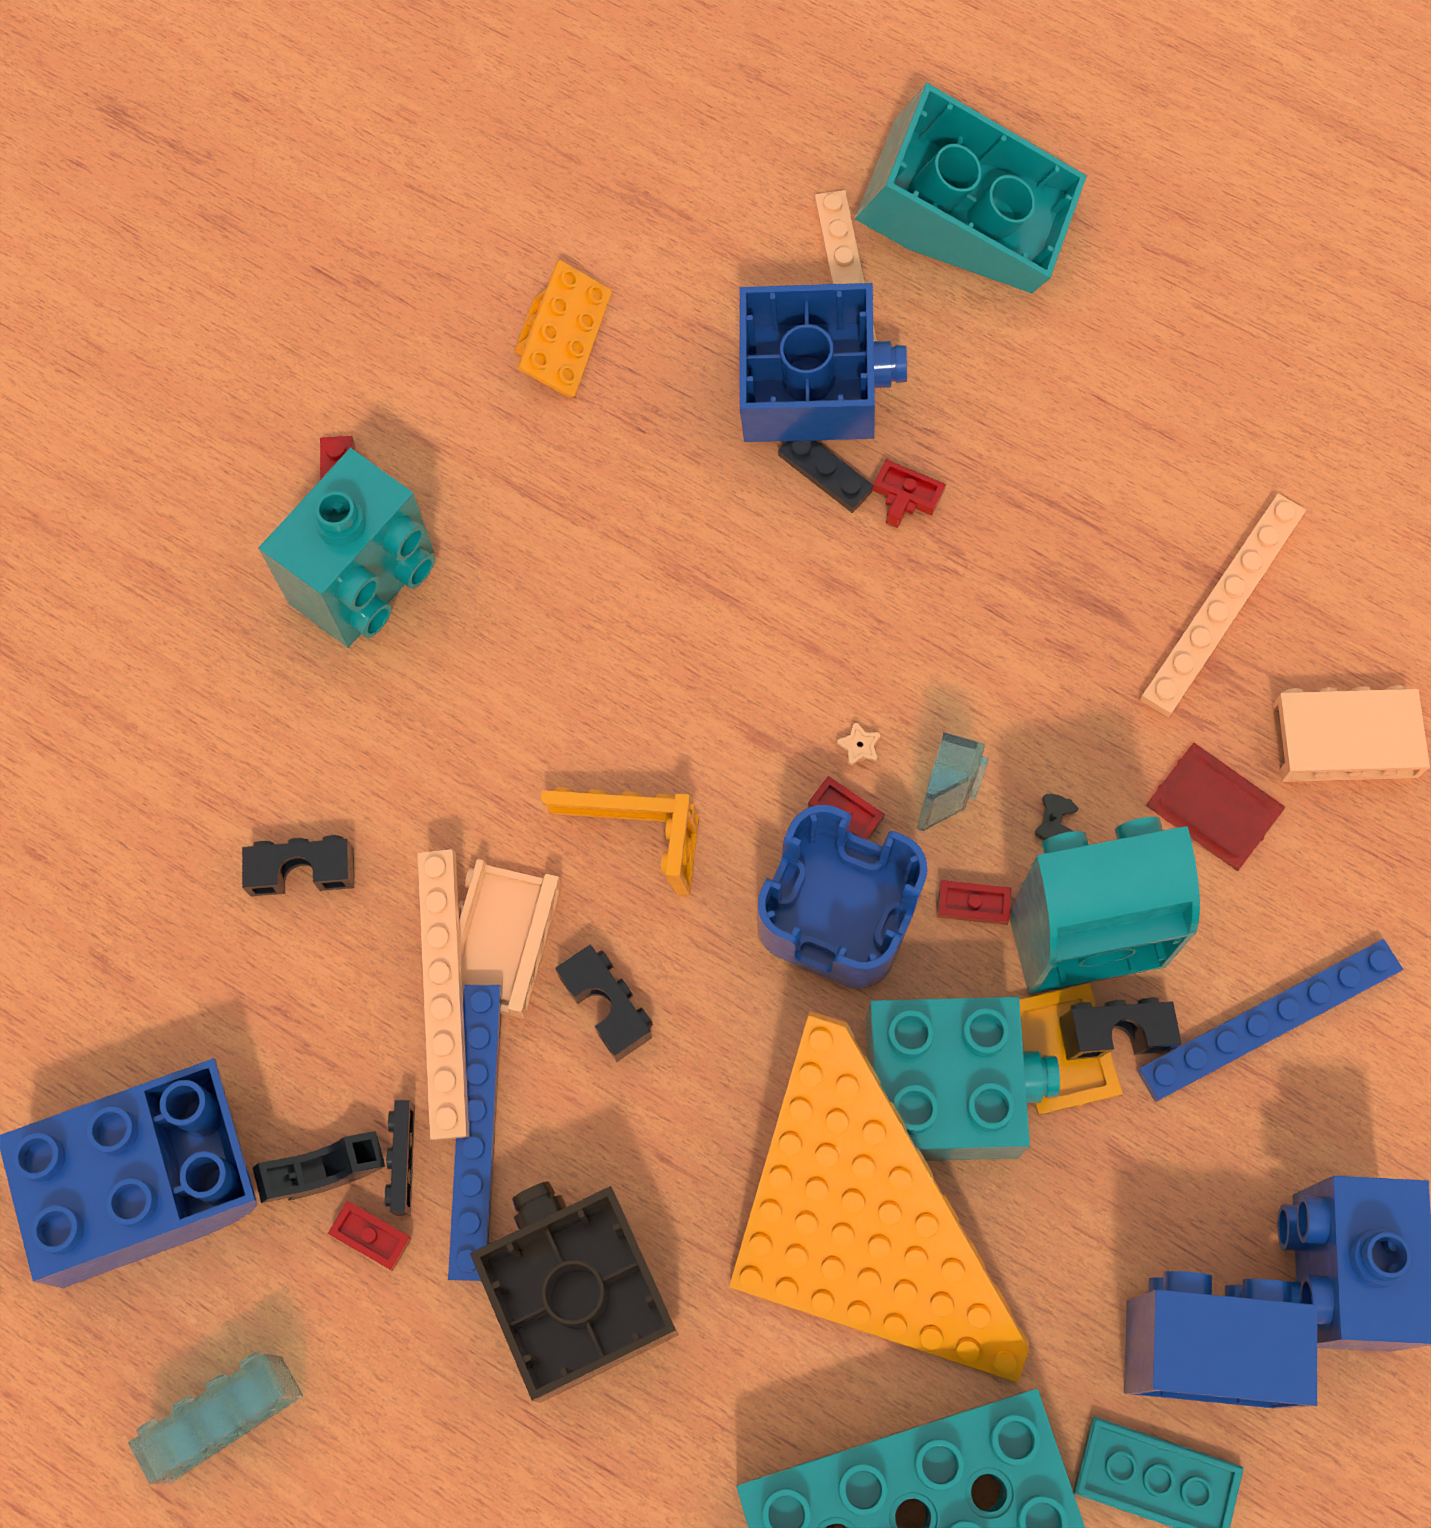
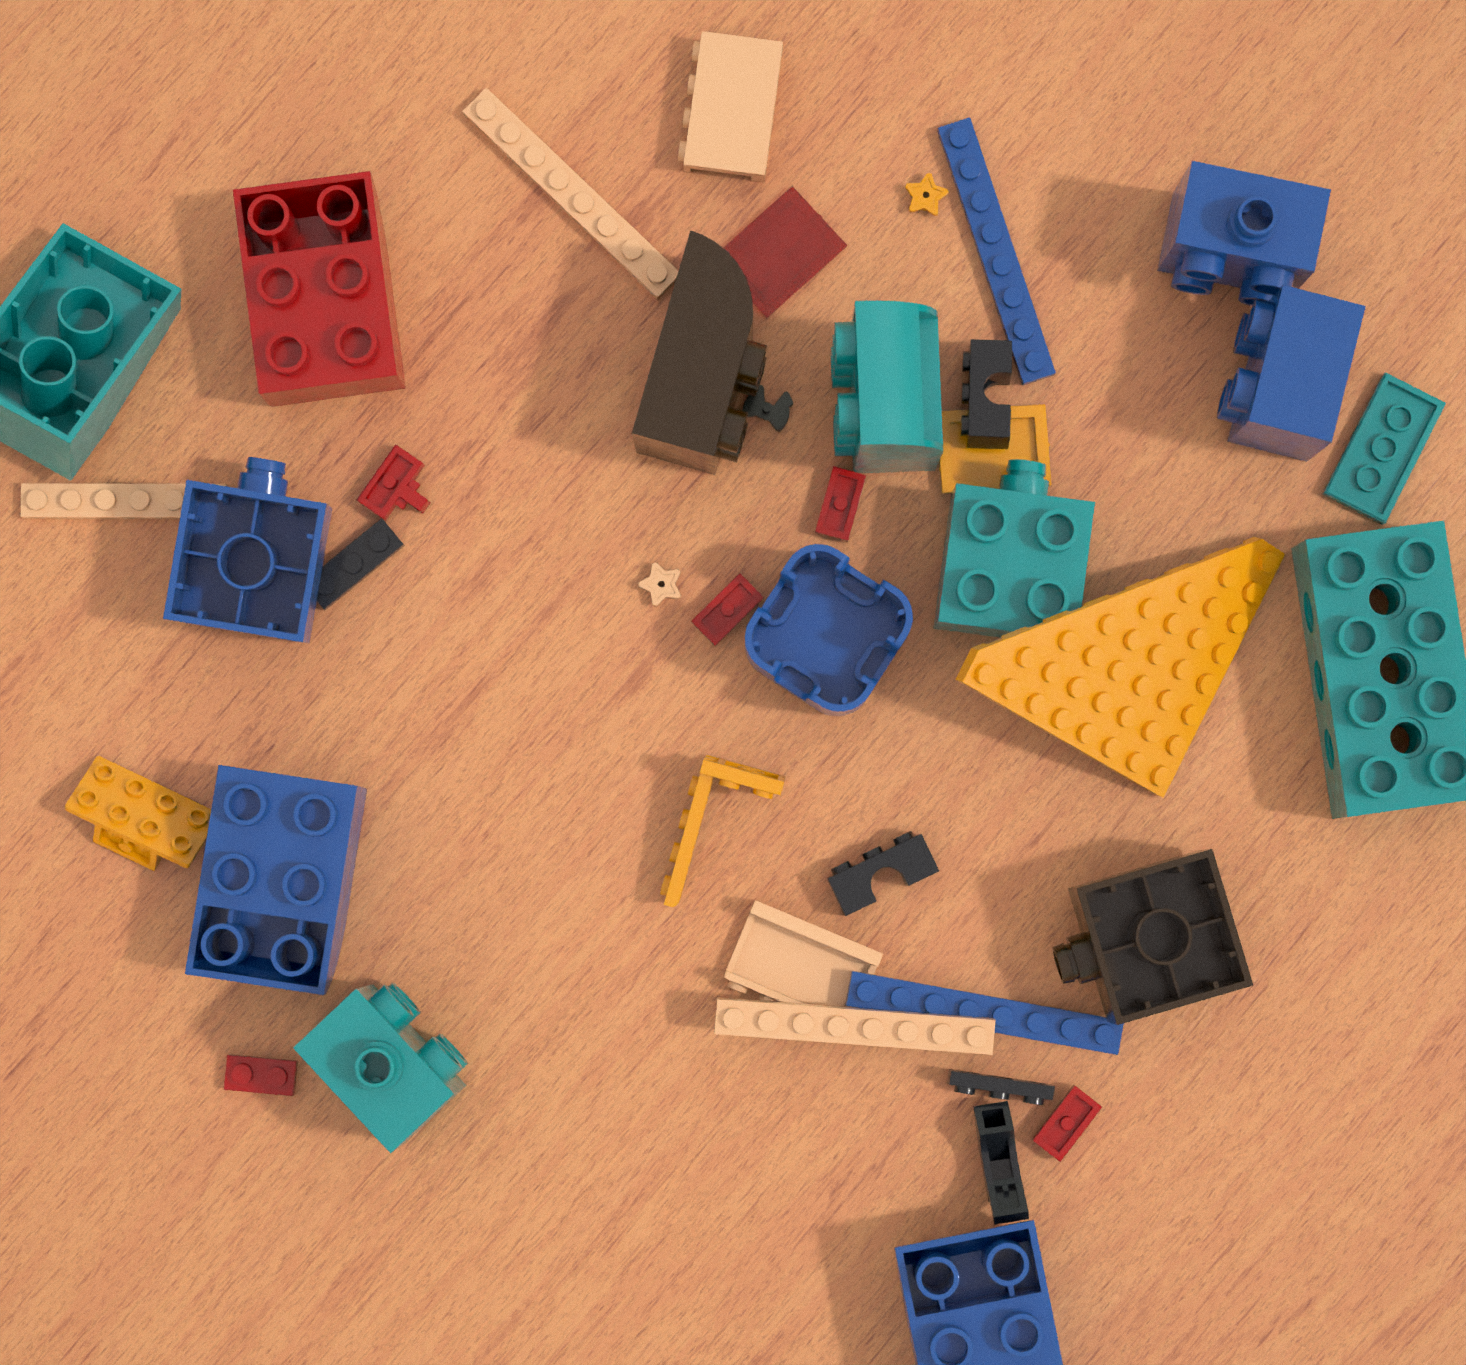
camera: 80 degrees left, 15 degrees up
(215, 1418) = (1213, 1276): clear light blue brick -> none
(268, 864) = (692, 1187): black arch -> none
(516, 440) = (275, 880): none -> blue brick
(953, 779) = (724, 503): clear light blue slope -> none
(1076, 388) = (318, 289): none -> red brick
(1087, 727) = (701, 364): none -> dark brown brick
(1307, 947) = (928, 204): none -> light orange plate

